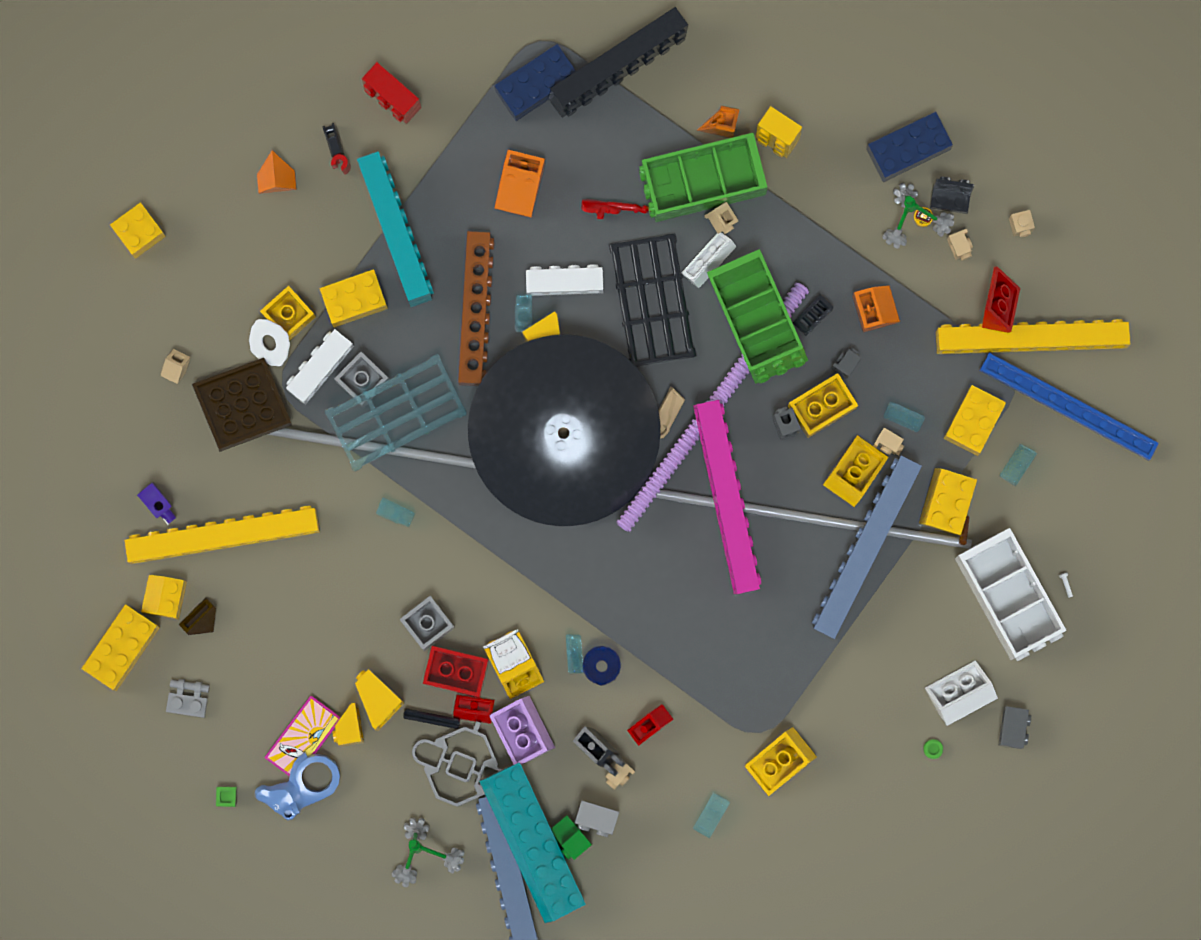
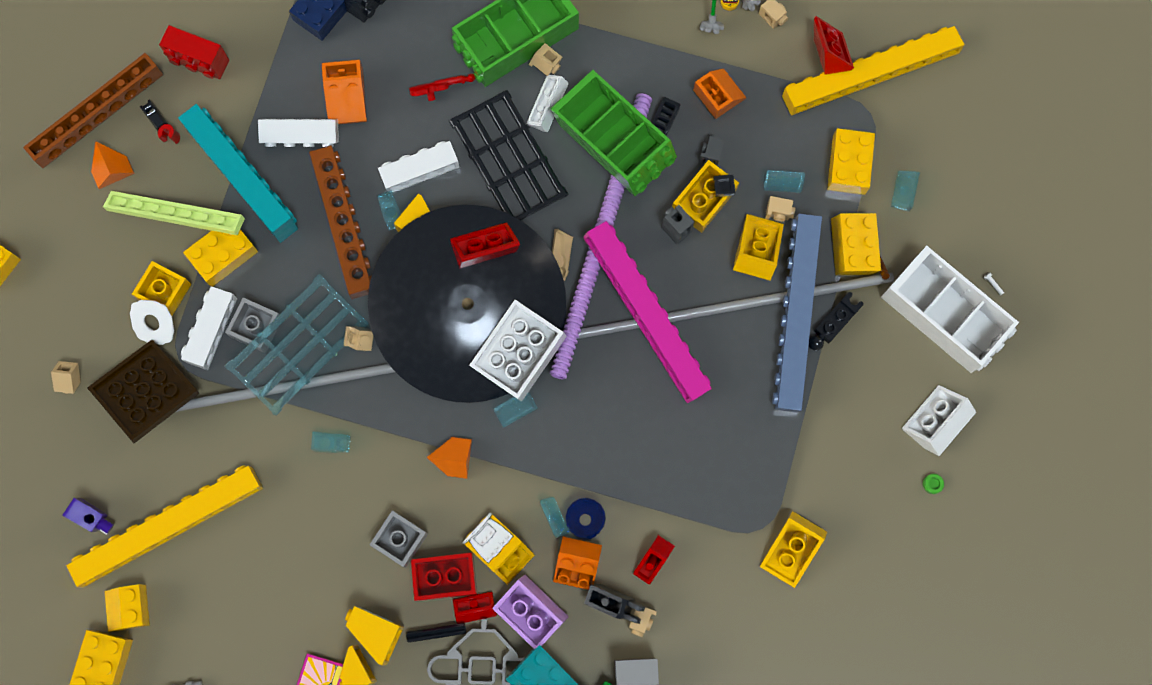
camera: 25 degrees left, 5 degrees down
(200, 620) = (171, 617): dark brown slope -> none
(278, 117) = (93, 110): none -> dark orange brick
(322, 246) = (174, 212): none -> yellowish green plate
(453, 426) = (358, 338): none -> tan brick
(464, 207) = (298, 131): none -> white brick
(502, 566) = (453, 457): none -> orange slope
(573, 542) = (514, 409): none -> clear light blue slope
(580, 702) = (577, 563): none -> orange slope
(594, 491) = (518, 350): none -> white slope
(597, 384) = (484, 245): none -> red slope
(711, 815) = (746, 627): clear light blue slope -> none
(841, 404) = (724, 185): none -> black plate
(899, 567) = (834, 322): none -> black plate
(1014, 727) = (1002, 435): dark grey brick -> none
(1069, 406) = (930, 120): blue plate -> none

